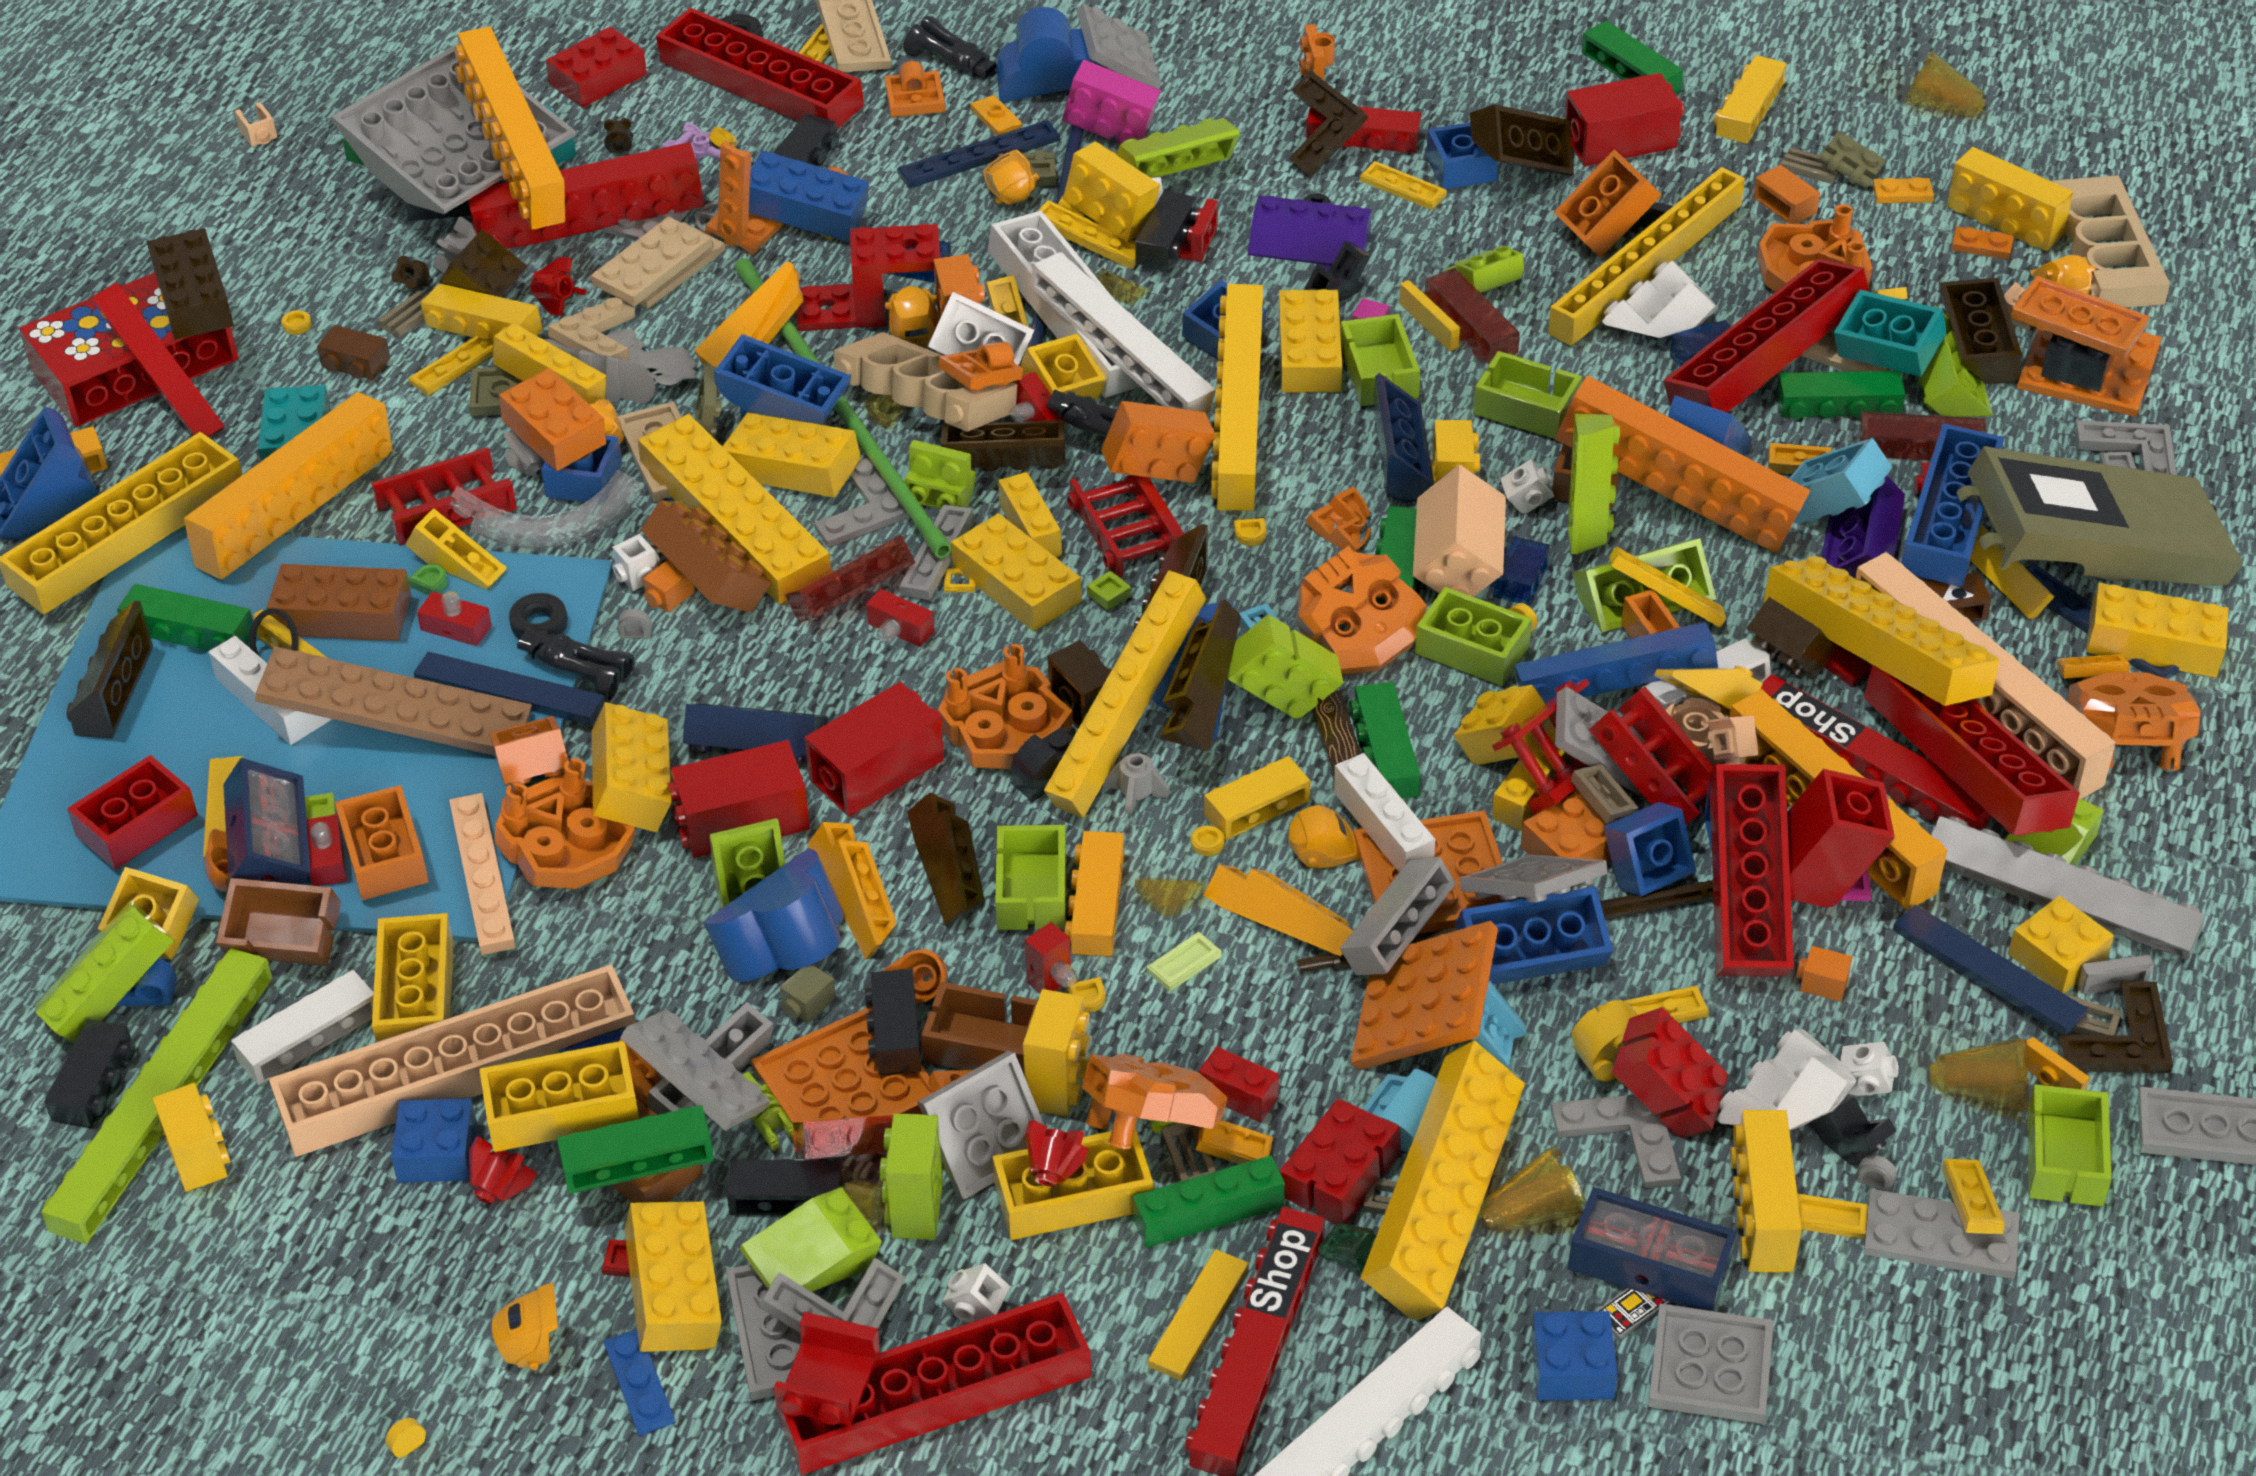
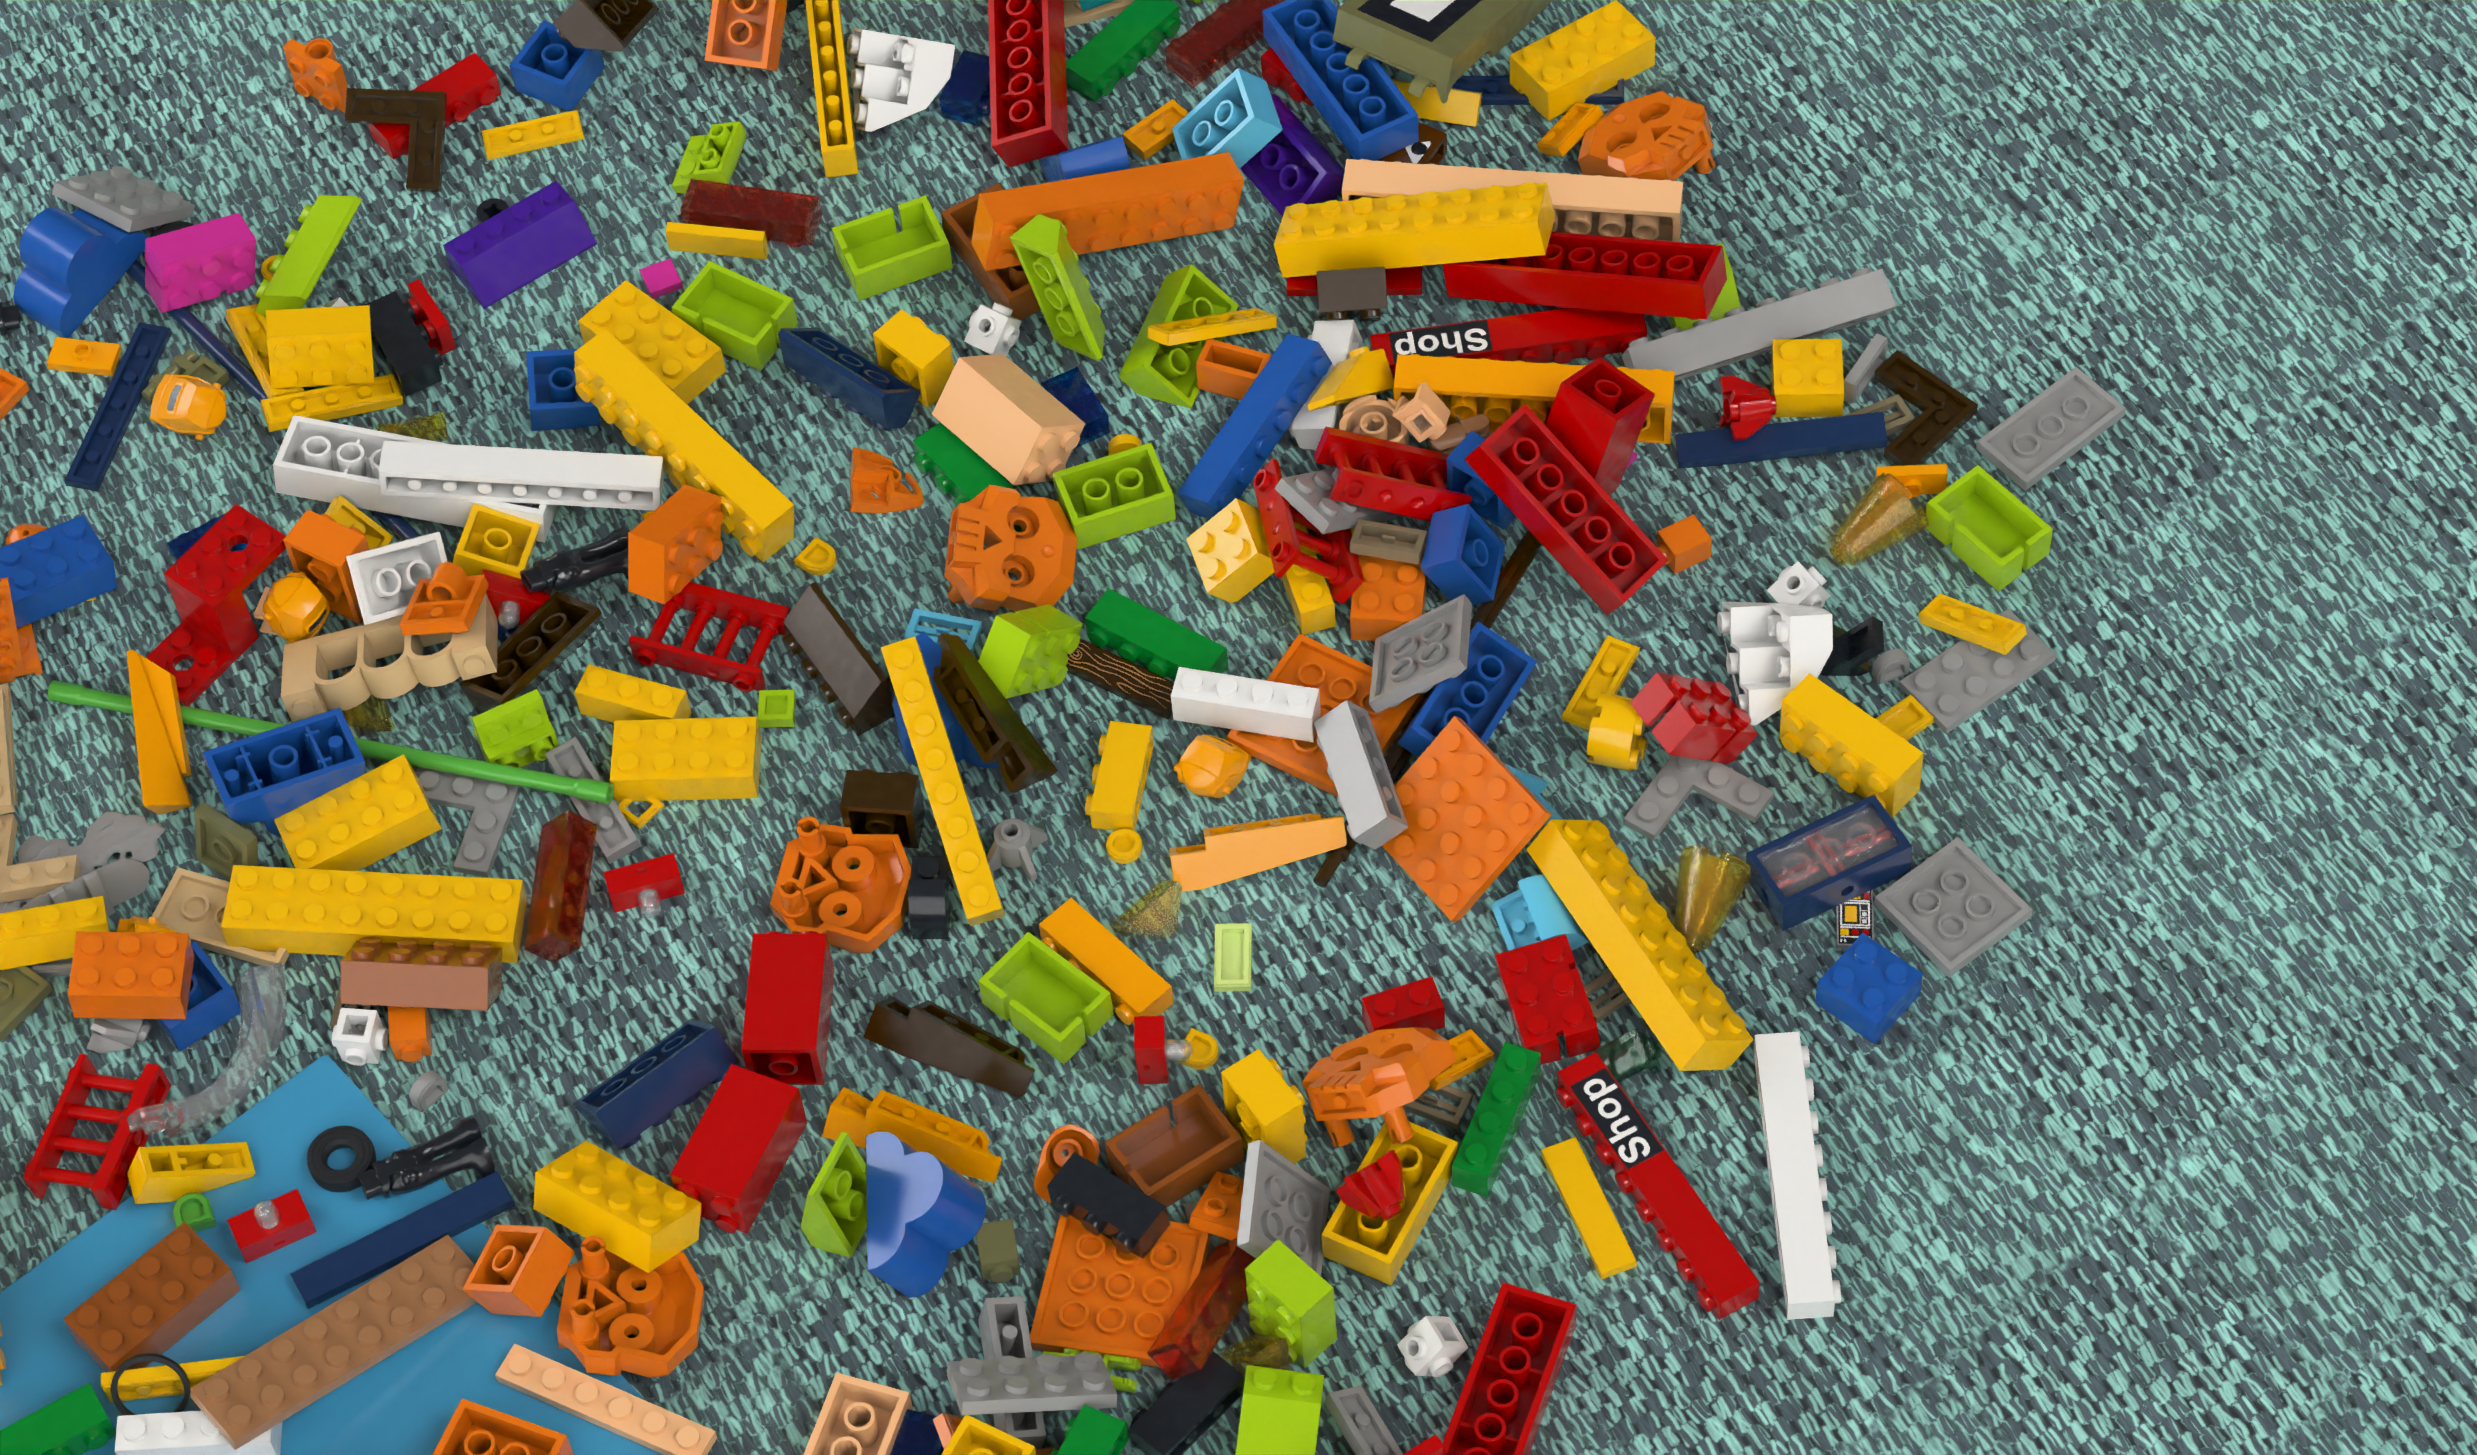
camera: 45 degrees left, 10 degrees up
(1343, 273) = (602, 263): black brick -> none
(1984, 923) = (1746, 407): none -> red brick

